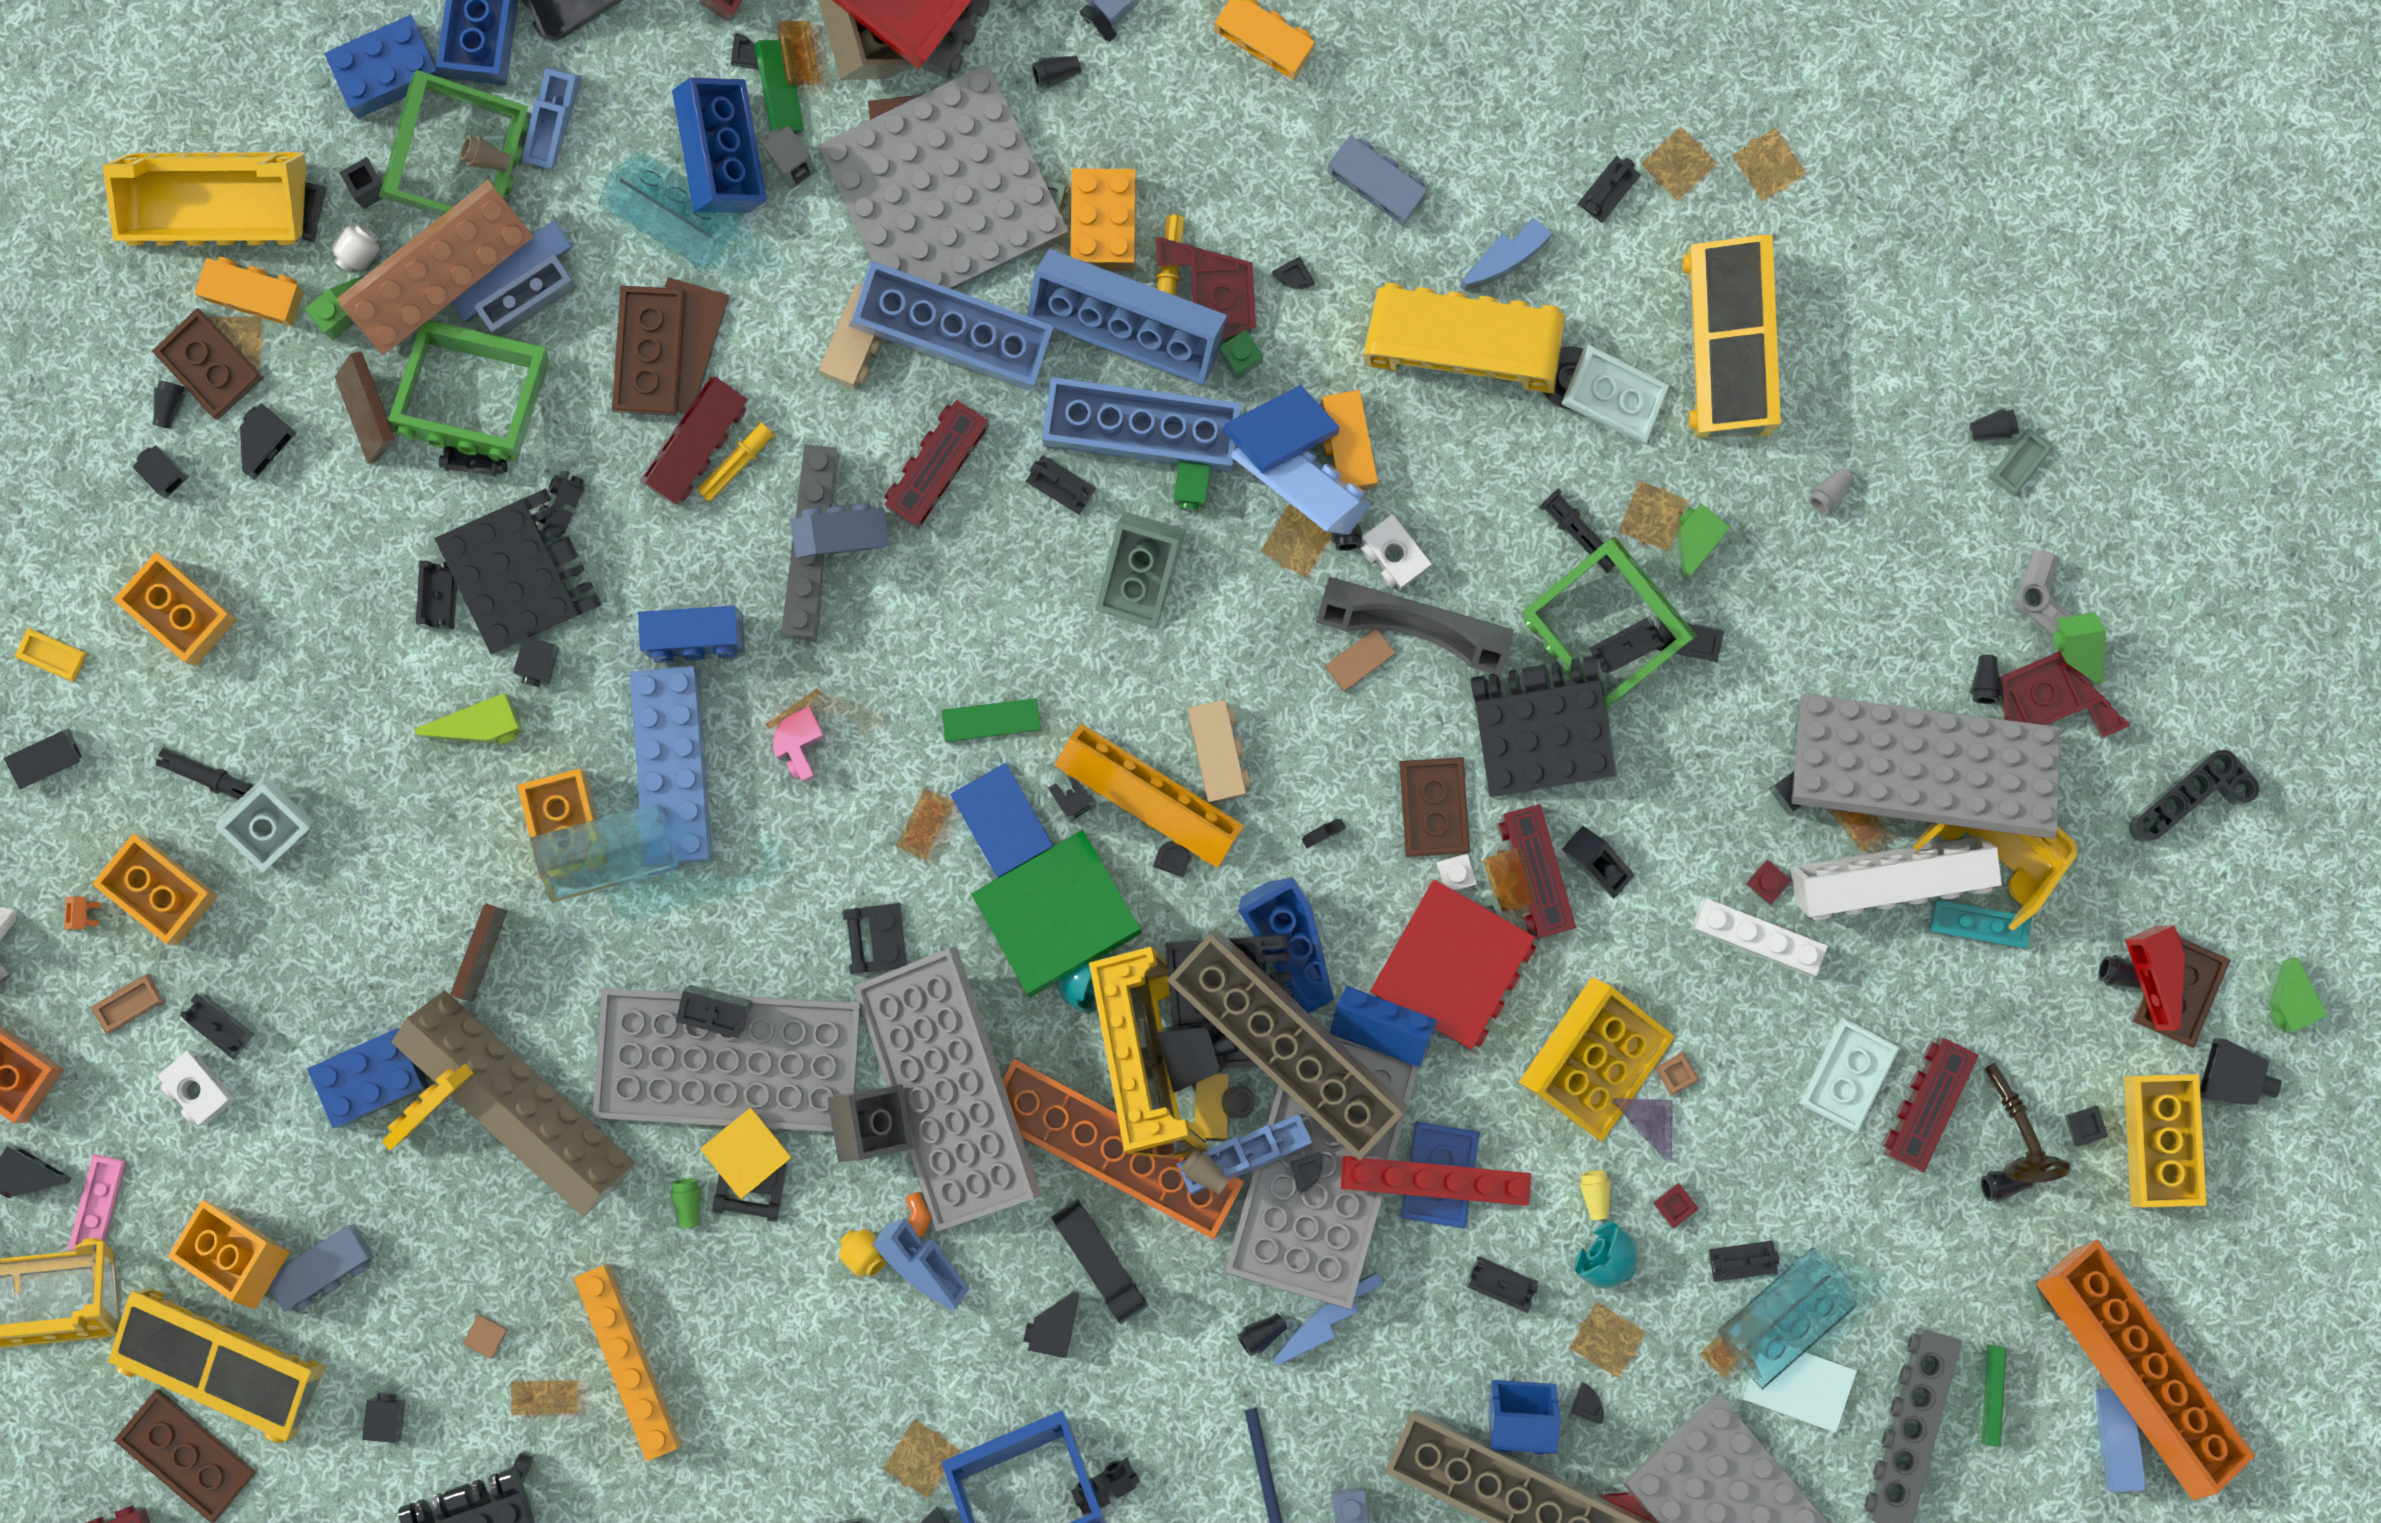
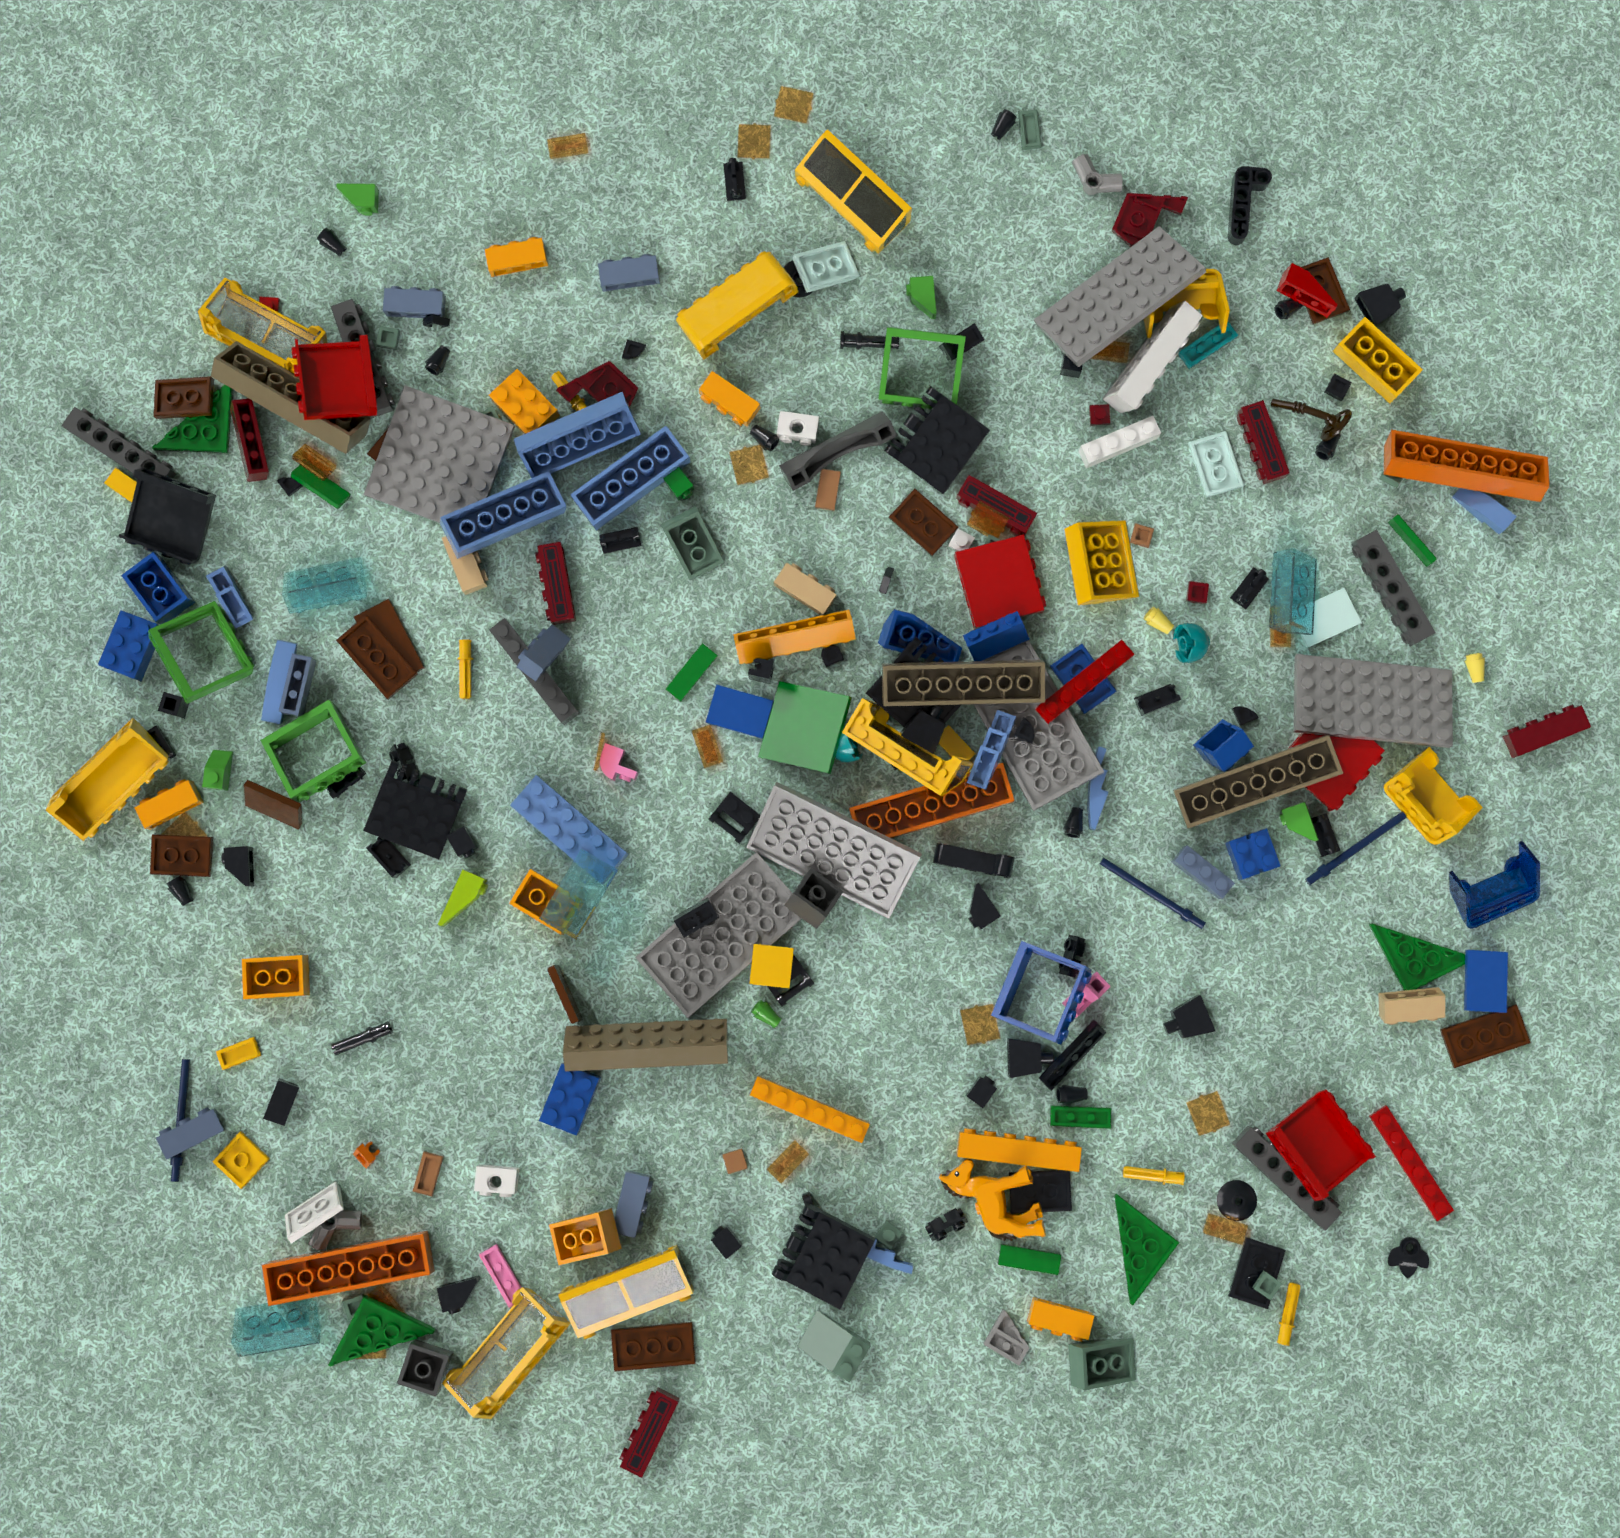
camera: 40 degrees left, 0 degrees up
(155, 889) = (390, 1109): light orange brick -> none
(159, 471) = (207, 923): black brick -> none
(217, 1025) = (478, 1143): black hinge -> none
(263, 824) = (411, 1032): light aqua brick -> none
(356, 248) = (198, 738): white head -> none
(431, 1100) = (609, 1078): yellow plate -> none
(435, 267) = (244, 710): nougat brick -> none
(482, 154) = (217, 639): dark tan cone -> none
(691, 633) = (520, 761): blue brick -> none
(694, 440) = (437, 676): dark red brick -> none
(719, 145) = (319, 535): blue brick -> none
(788, 156) = (355, 510): dark grey brick -> none
(859, 1253) = (866, 959): yellow head -> none
(920, 1215) = (876, 921): orange arm -> none
(921, 1263) = (896, 938): medium blue slope -> none
(1205, 1171) = (981, 773): dark tan cone -> none
(1238, 1102) = (964, 732): dark grey tile -> none
(1241, 354) = (644, 406): green brick -> none
(1281, 429) = (695, 419): blue tile -> none
(1314, 490) = (726, 433): light blue slope -> none
(1507, 255) = (718, 251): medium blue slope -> none
(1598, 861) = (1017, 476): black slope -> none
(1607, 1339) = (1224, 679): clear orange piece -> none
(1627, 645) = (940, 367): black hinge -> none
(1652, 1120) = (1151, 566): clear purple tile -> none
(1653, 515) = (893, 304): clear orange piece -> none
(1830, 492) = (960, 220): light grey cone -> none
(1986, 681) = (1108, 238): black cone -> none
(2082, 644) = (1134, 179): bright green slope -> none
(2294, 998) = (1371, 247): bright green slope -> none

